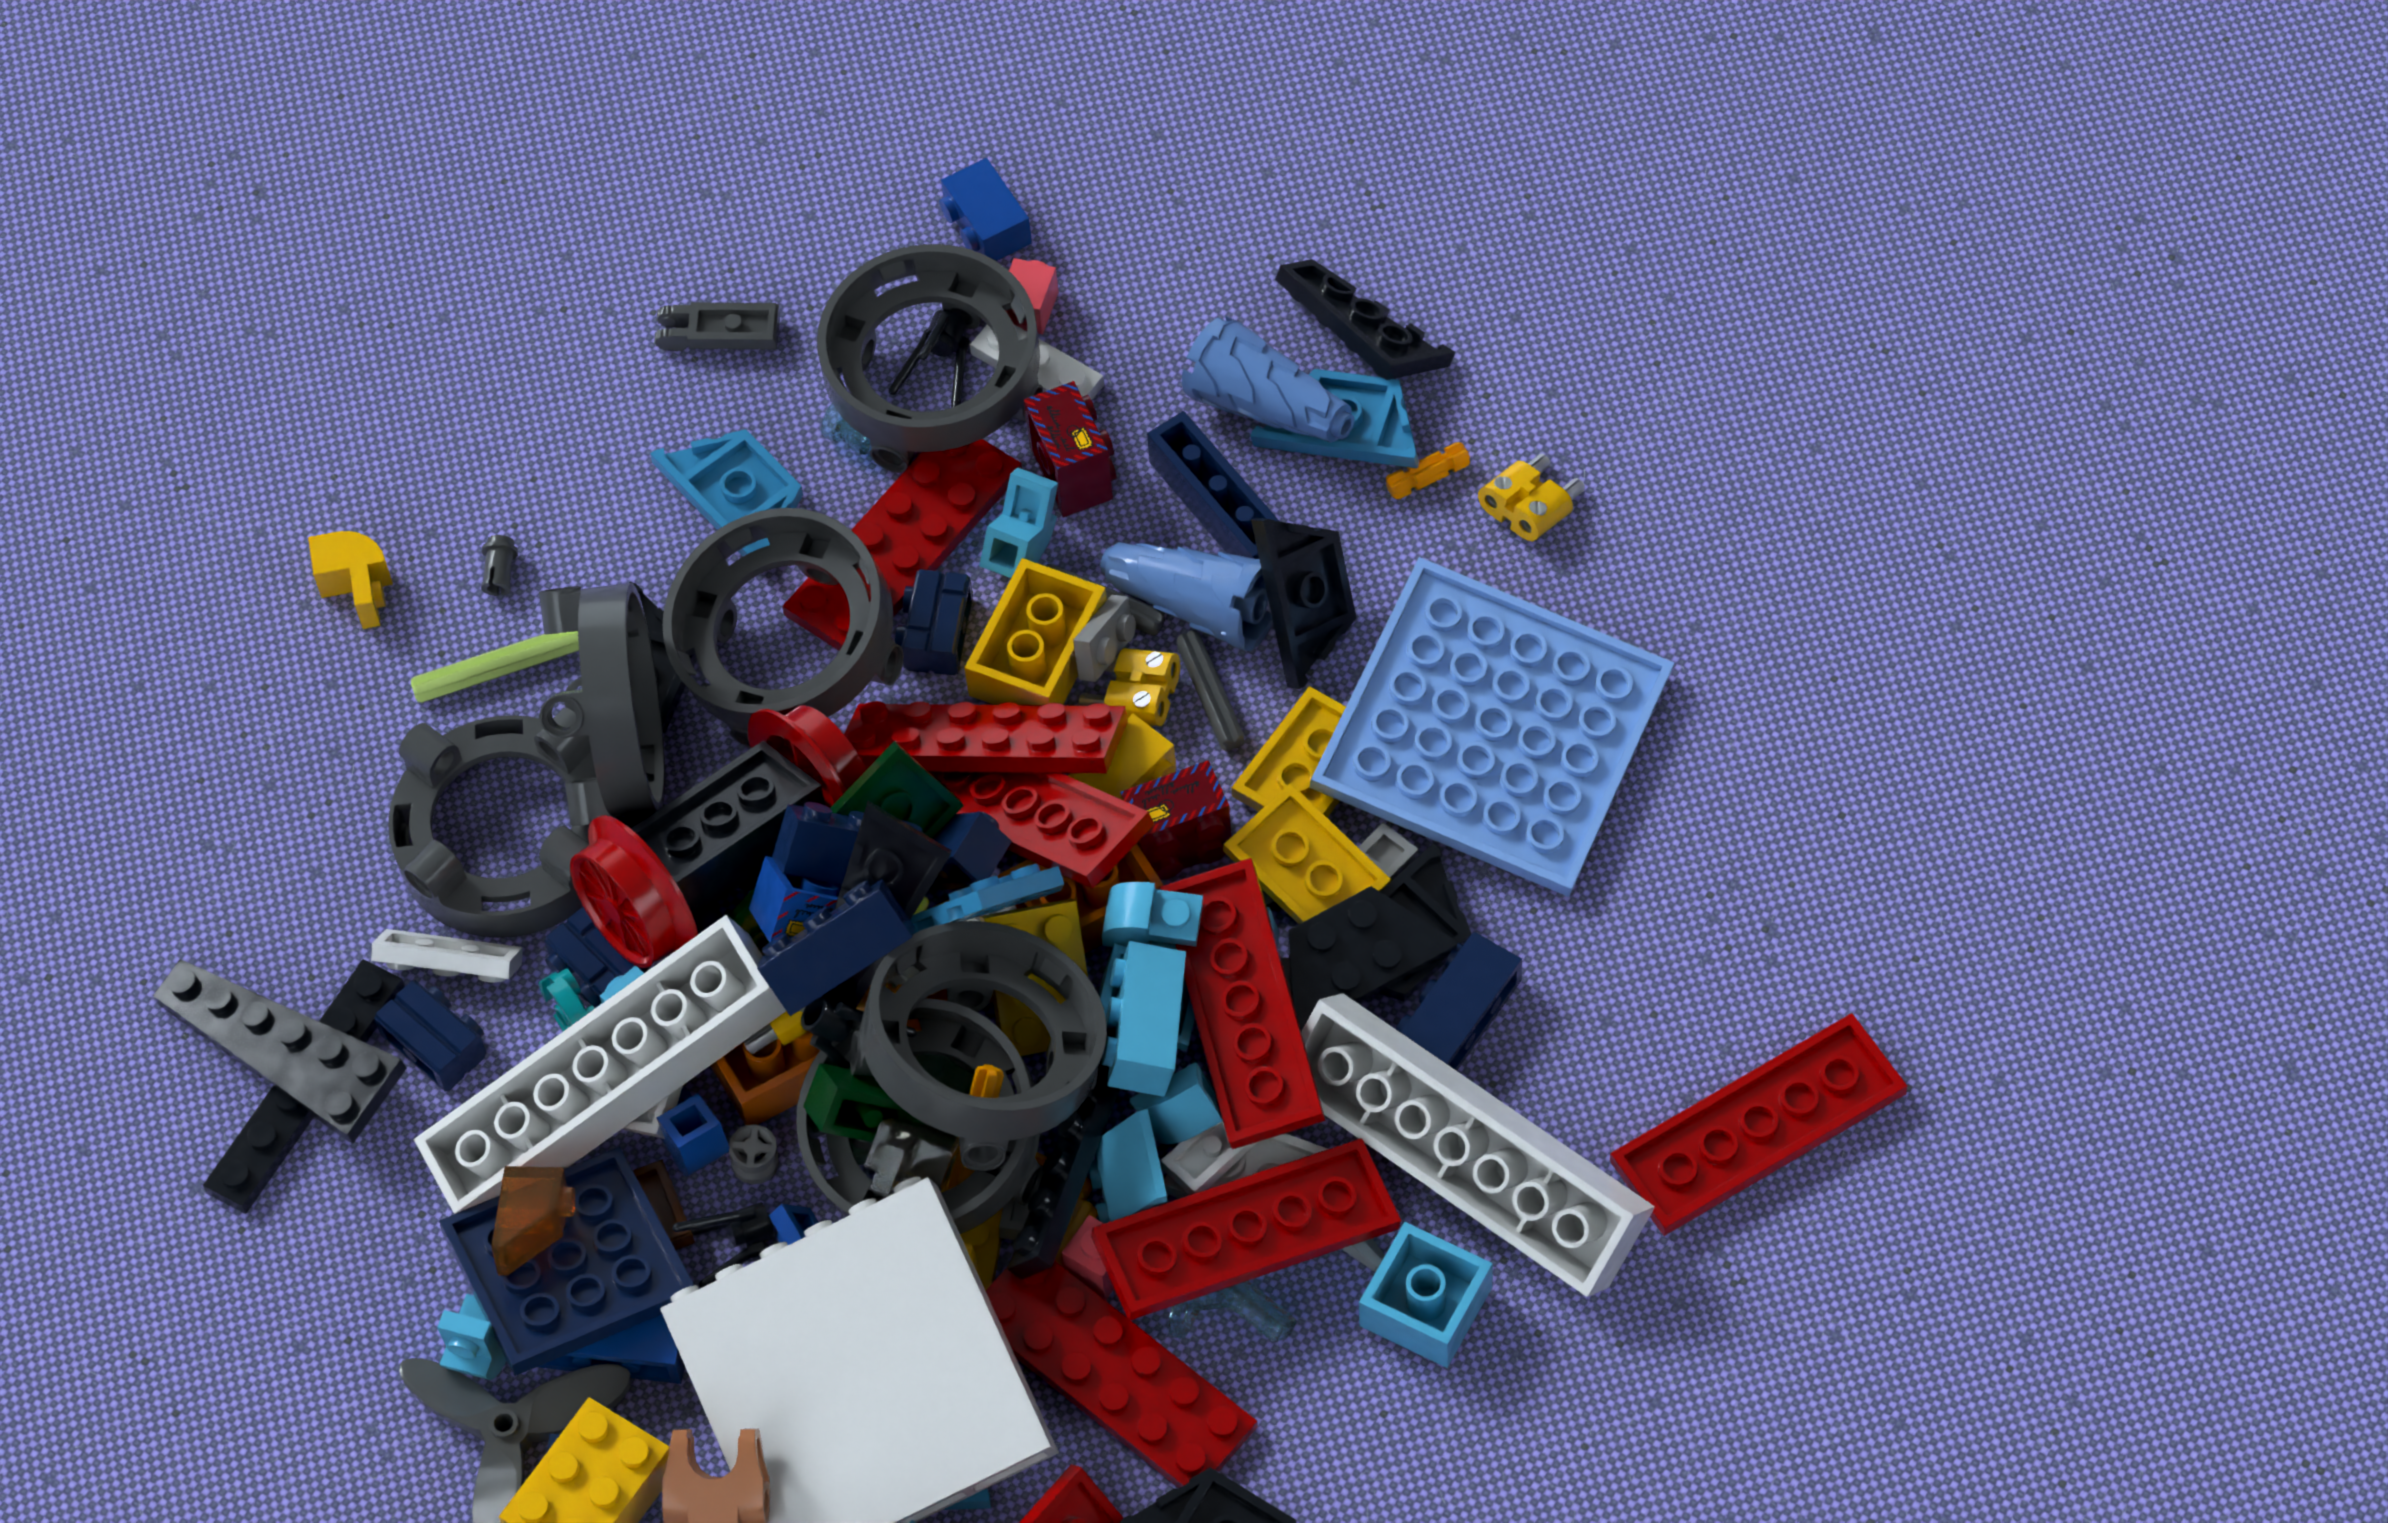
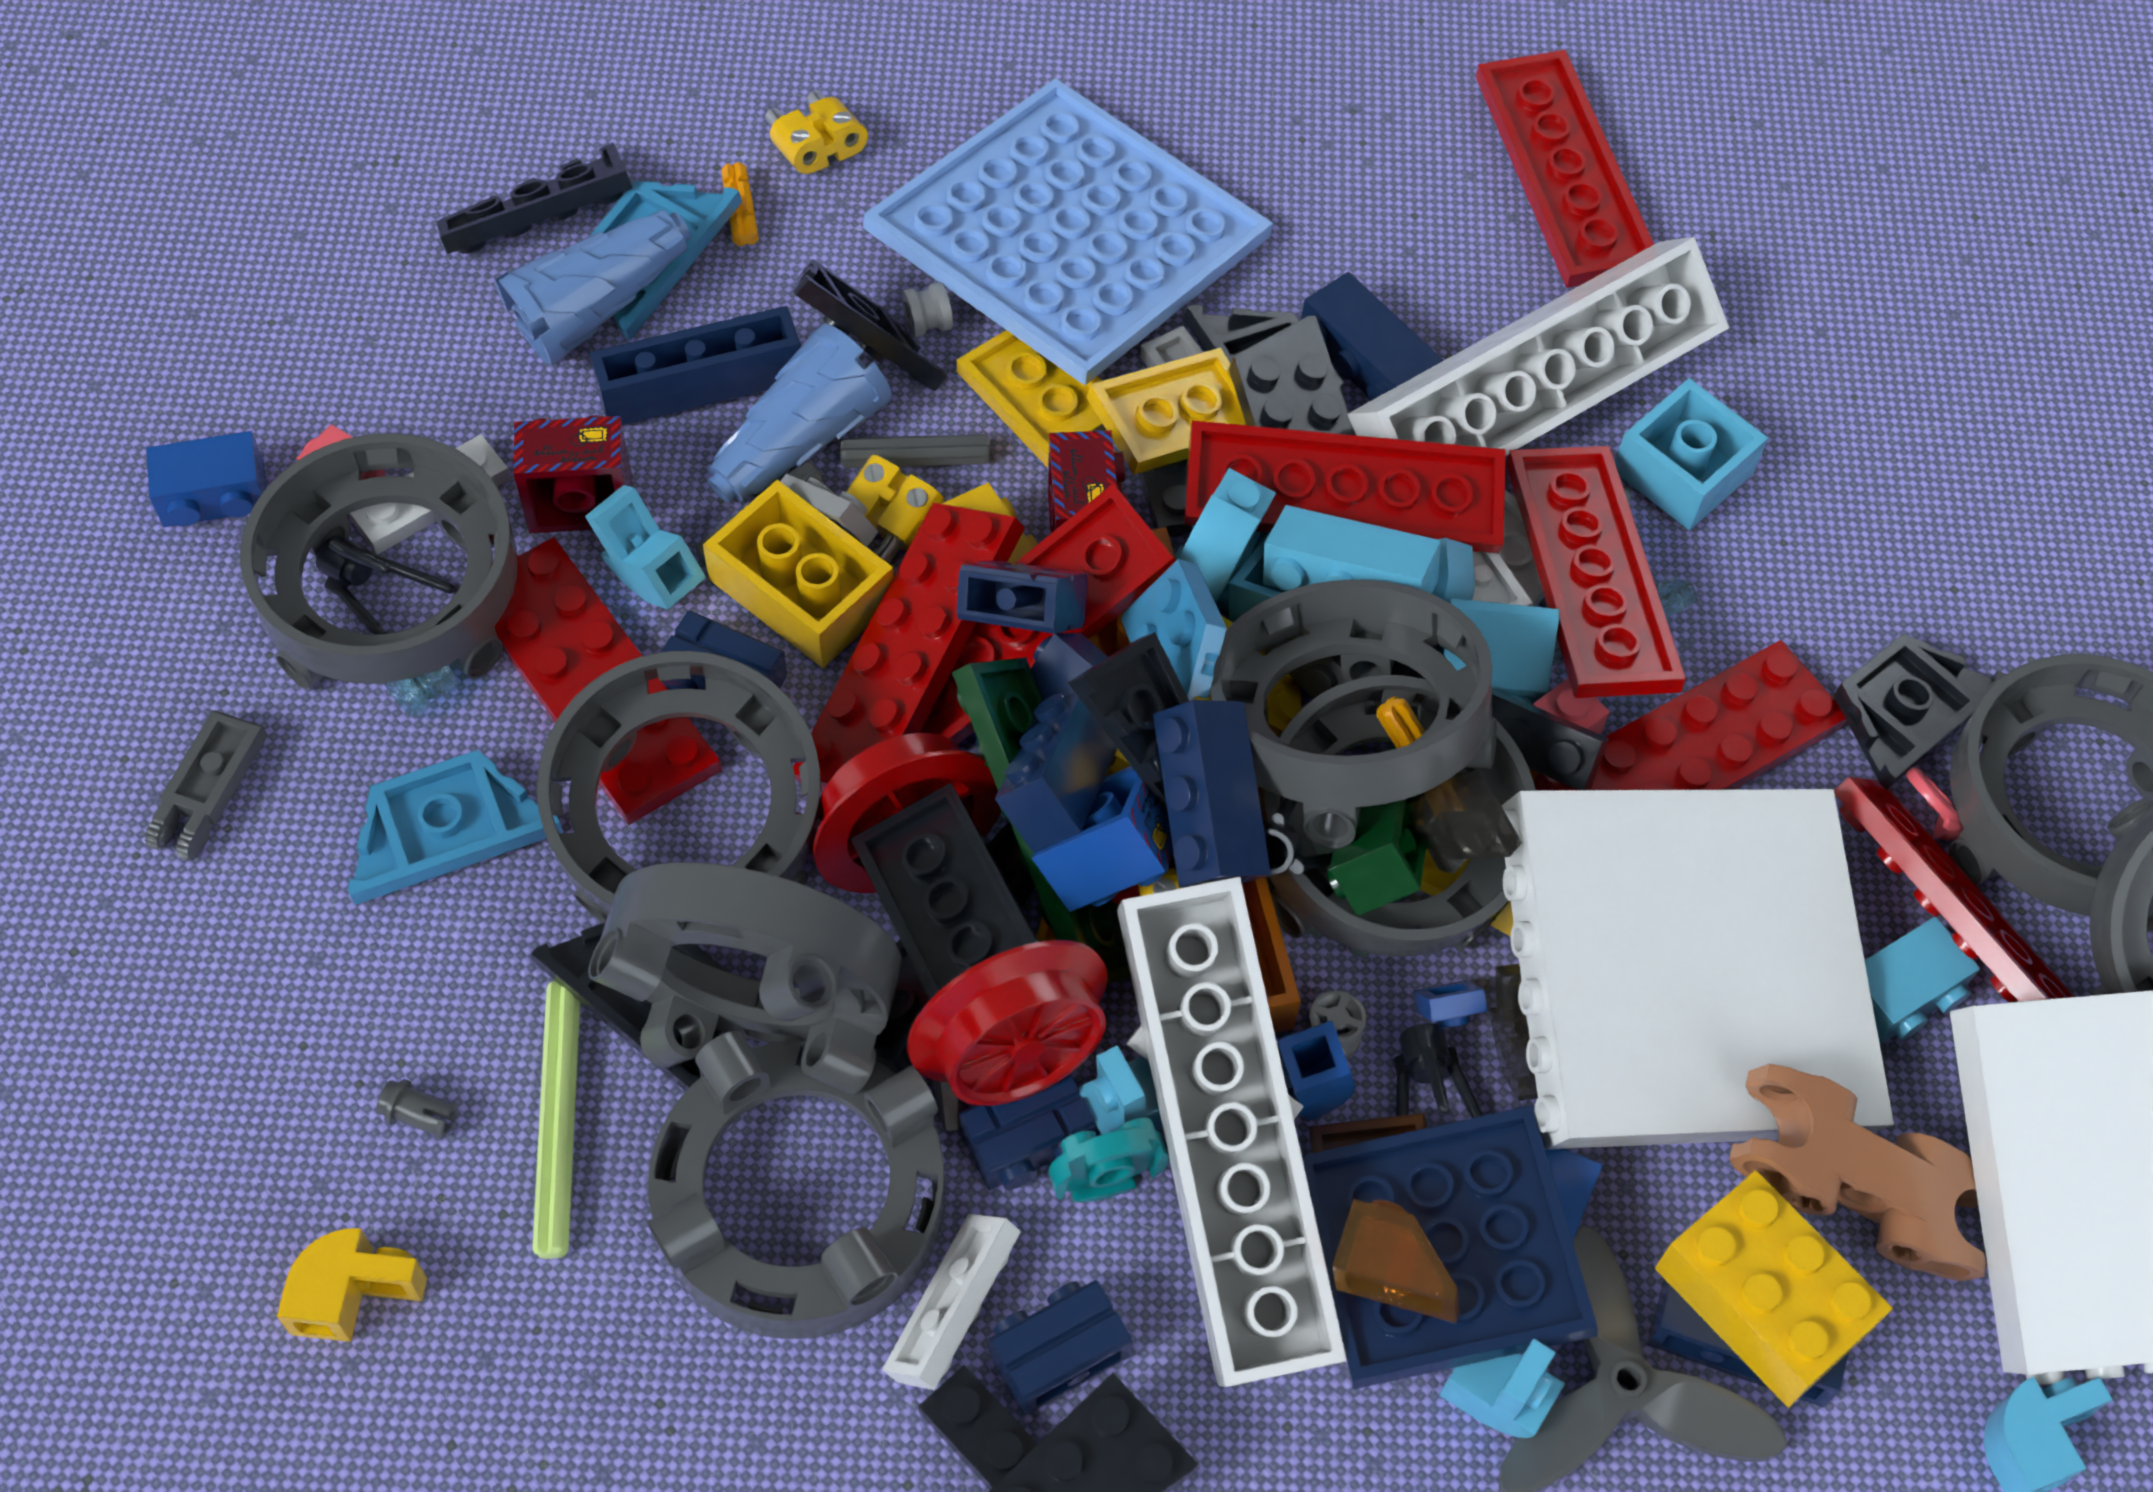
camera: 80 degrees left, 0 degrees up
(1018, 783) = (1022, 596): none -> dark blue brick
(1355, 644) = (927, 309): none -> light grey wheel

